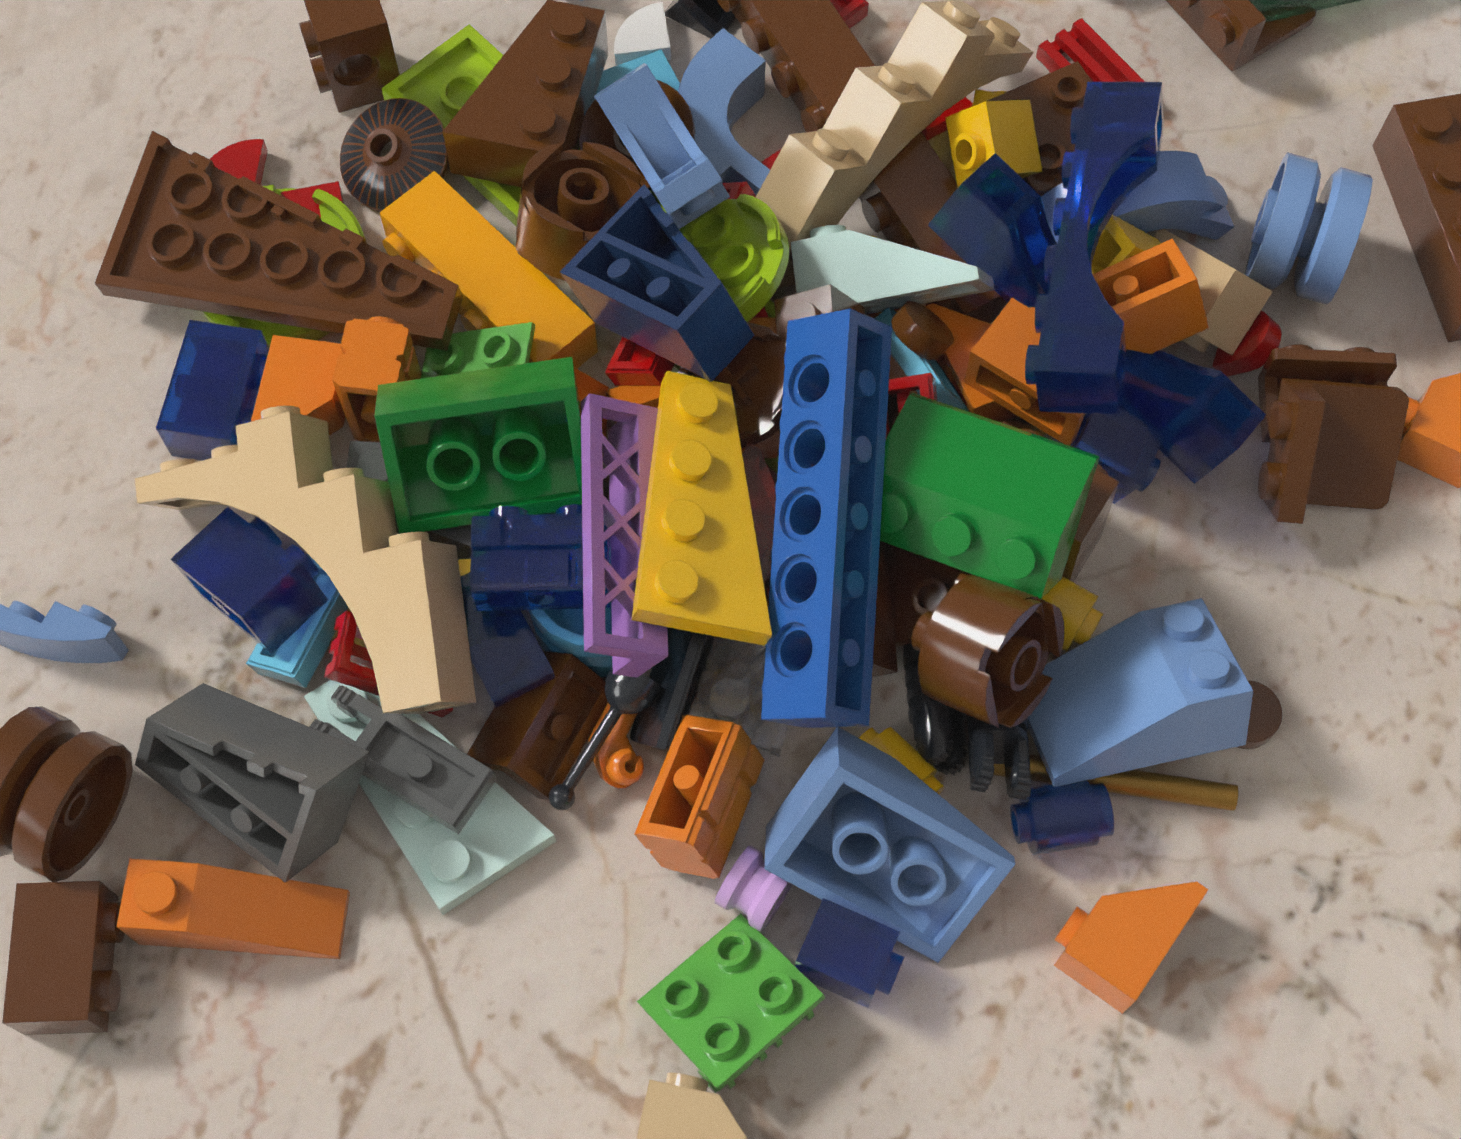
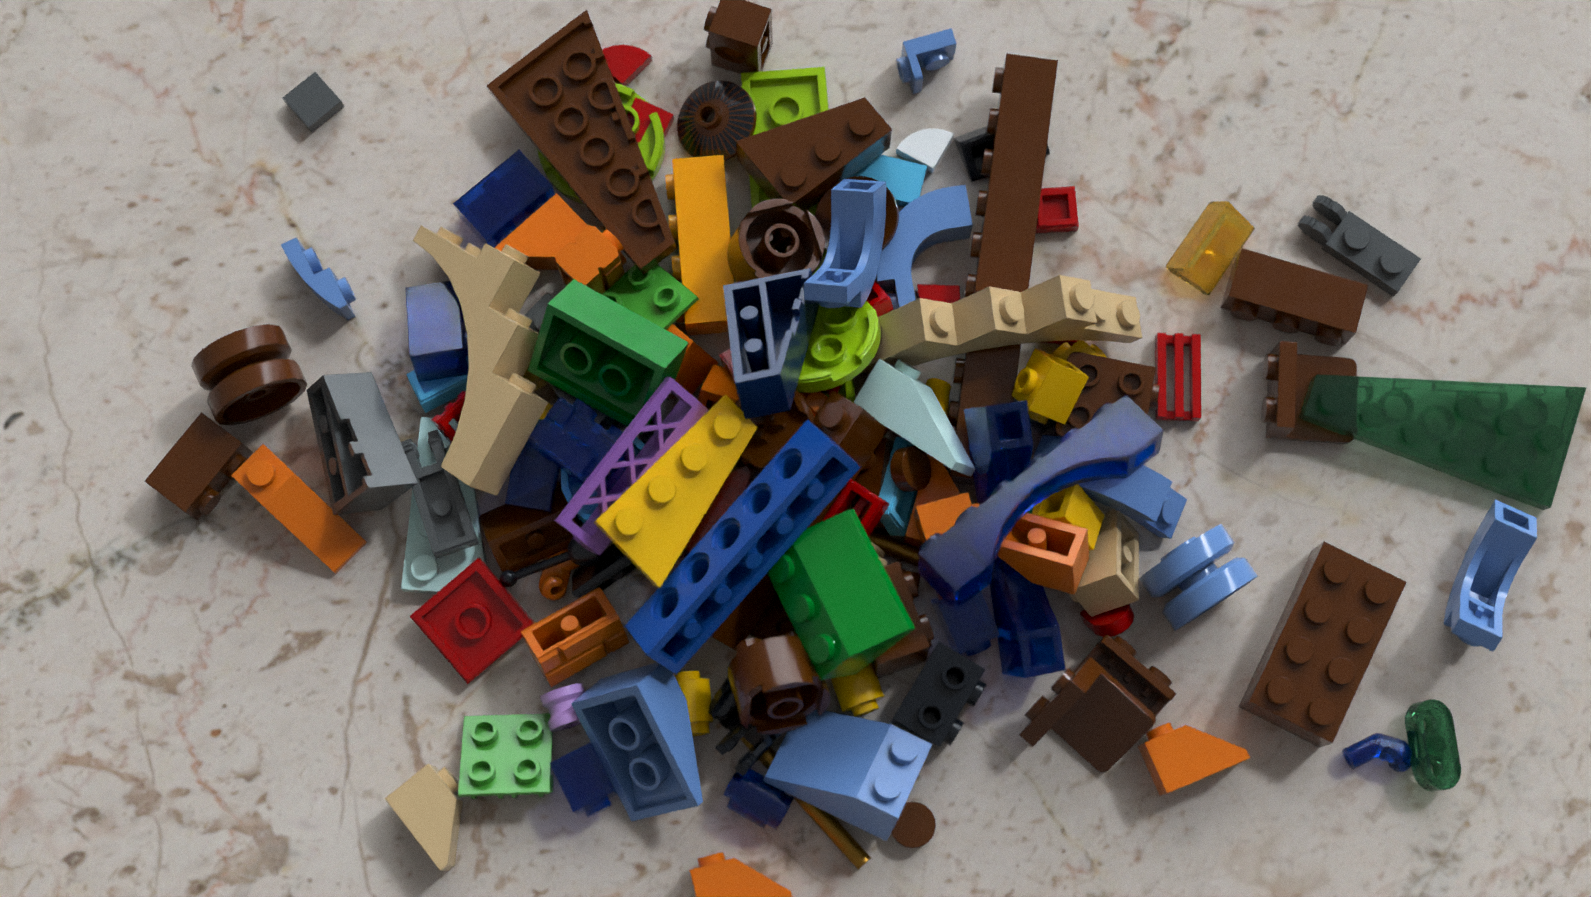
camera: 40 degrees right, 10 degrees up
(559, 876) = (472, 620): none -> red tile
(1155, 548) = (939, 696): none -> black brick

